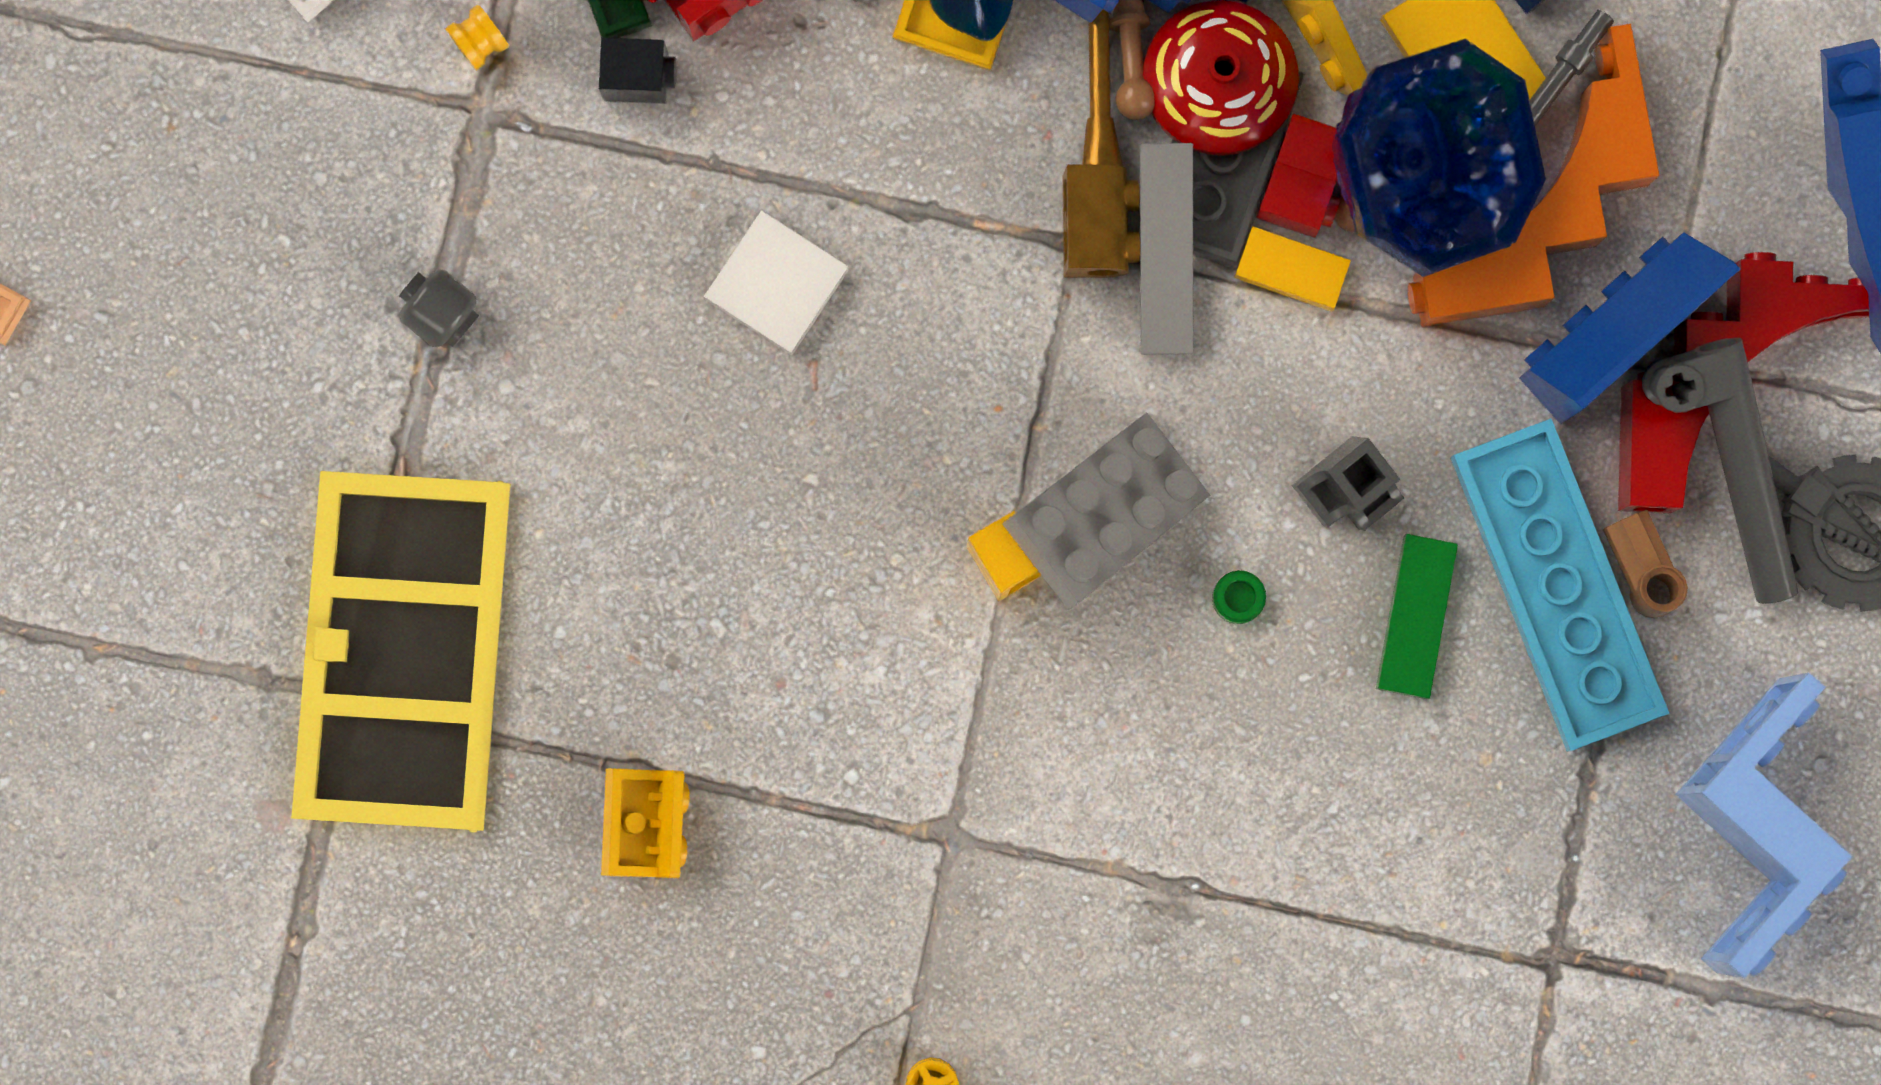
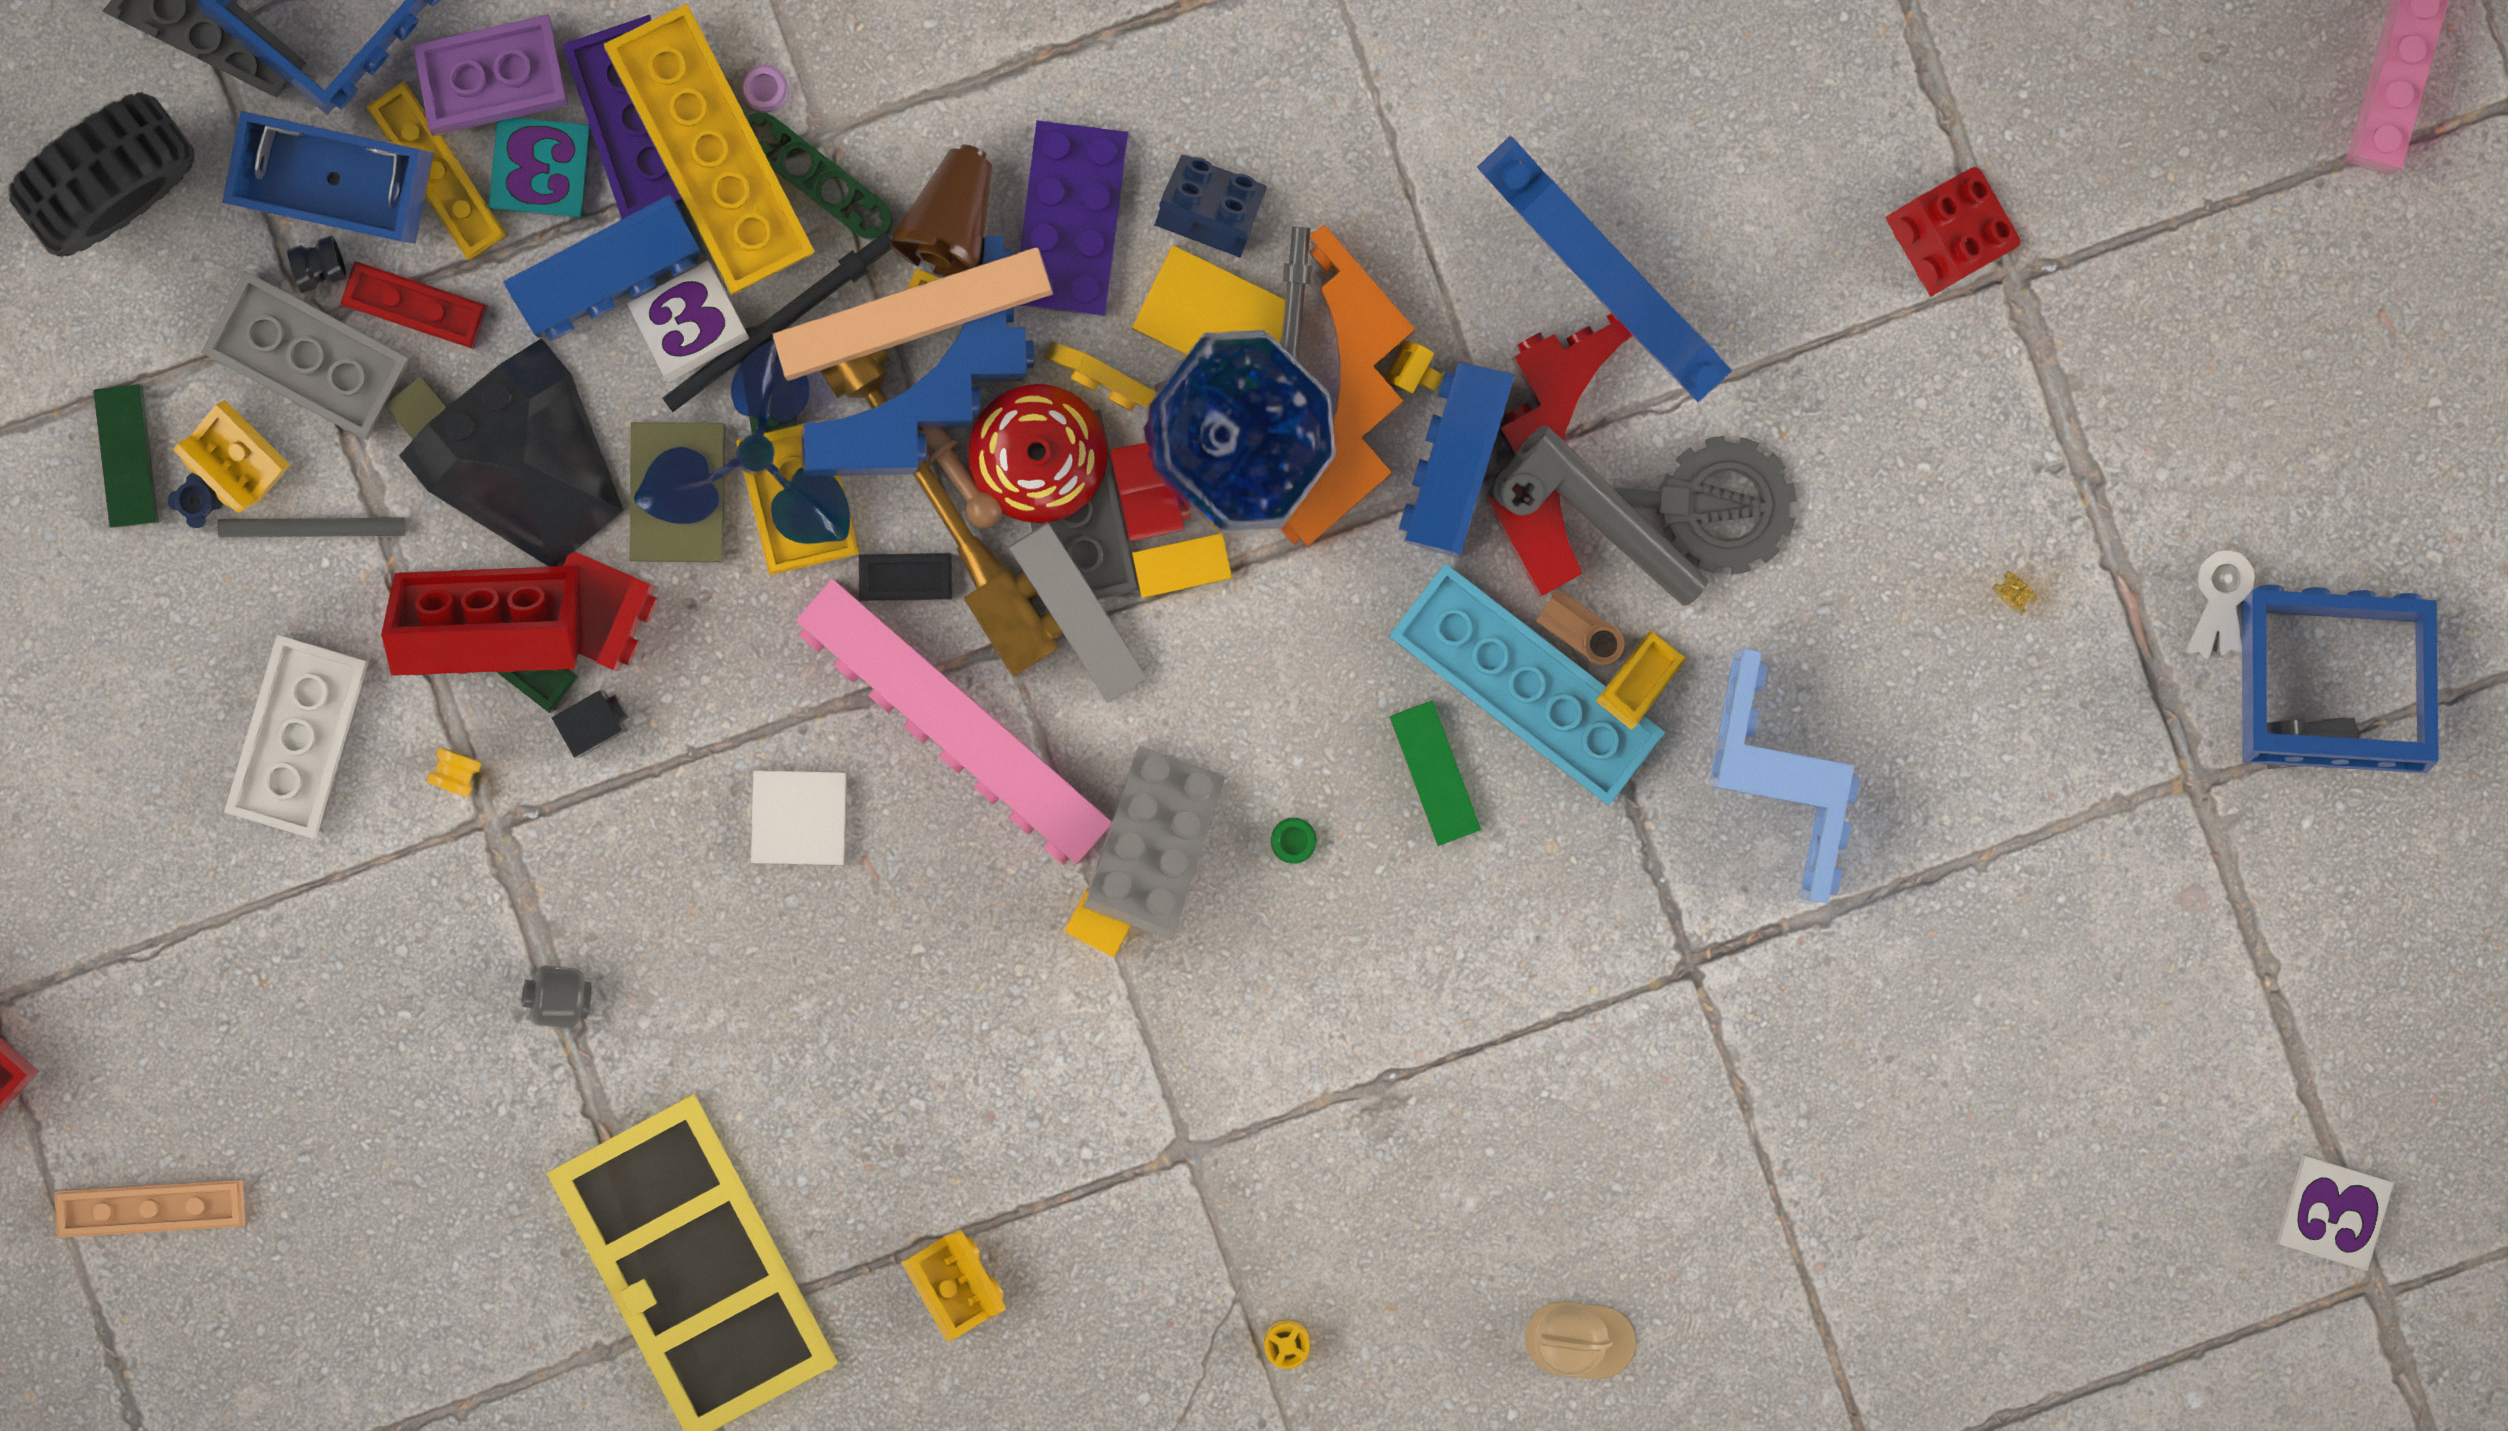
camera: 30 degrees left, 5 degrees up
(982, 280) = (954, 722): none -> bright pink brick
(1020, 119) = (905, 577): none -> black tile
(1350, 483) = (1323, 706): dark grey brick -> none
(1630, 217) = (1412, 369): none -> yellow tile
(1675, 648) = (1641, 679): none -> yellow tile

